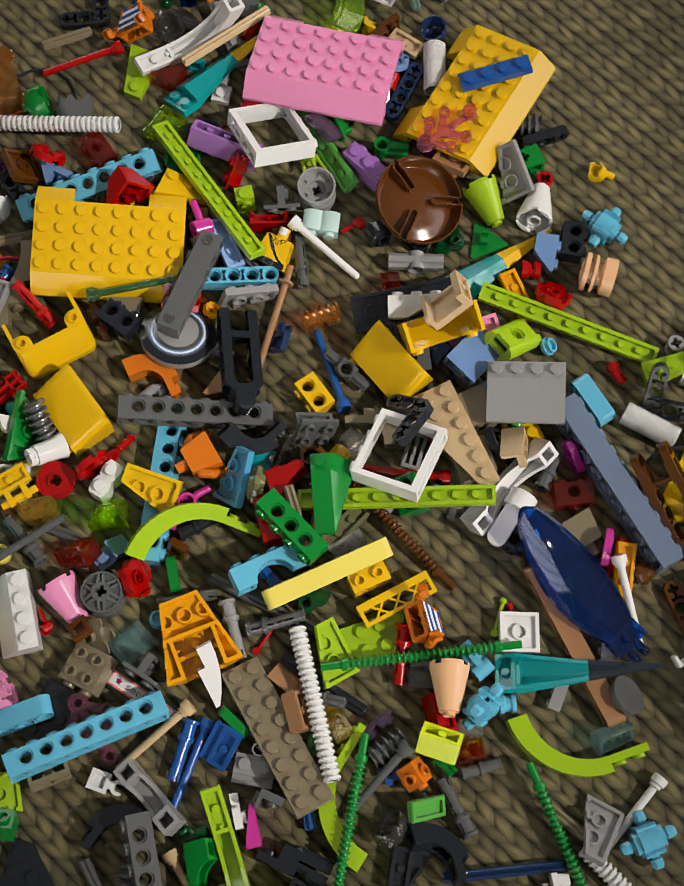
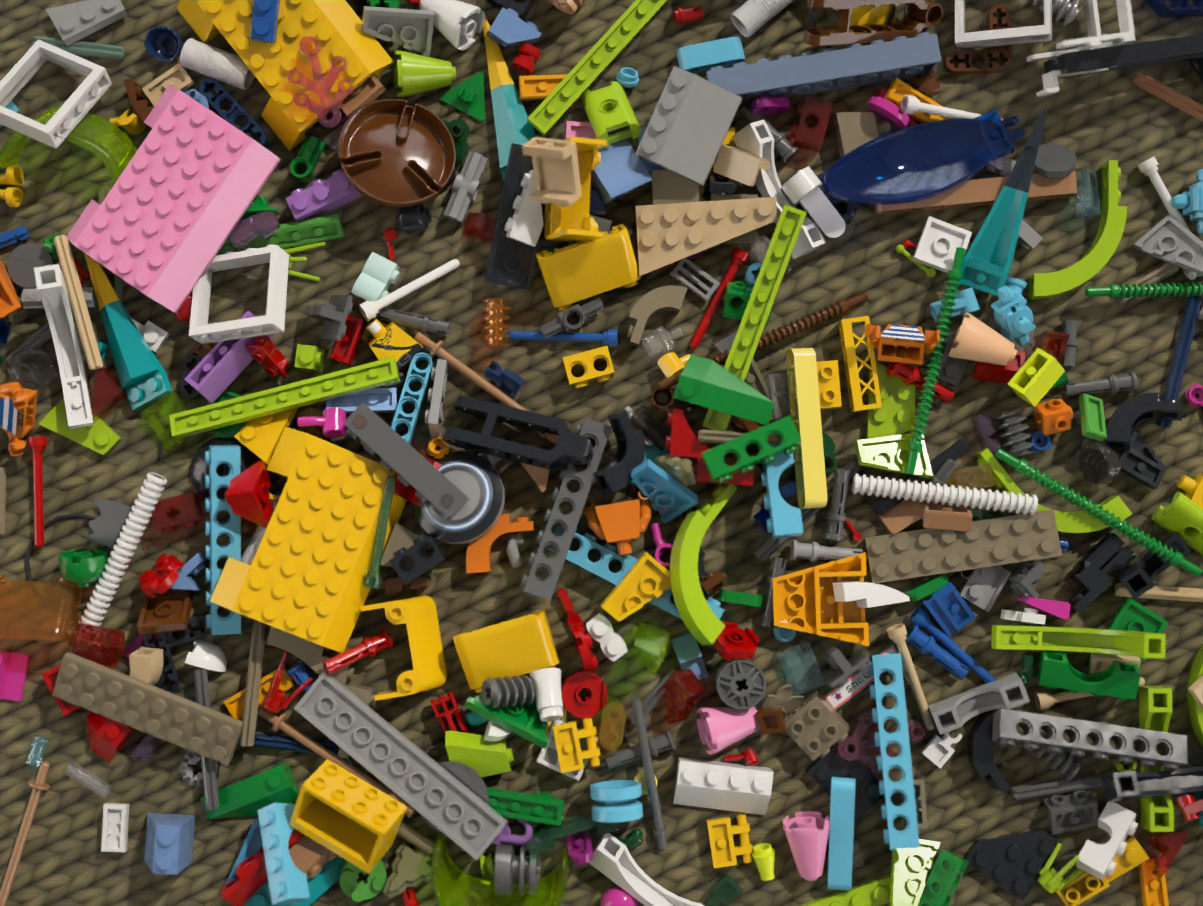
camera: 70 degrees left, 15 degrees up
(314, 181) = (333, 254): light grey wheel -> none
(314, 428) = (631, 380): dark grey bracket -> none
(388, 485) = (687, 334): white window -> none
(404, 749) = (1030, 417): dark grey piece -> none
(405, 432) = (670, 262): black beam -> none
(552, 294) = (579, 44): red plate -> none

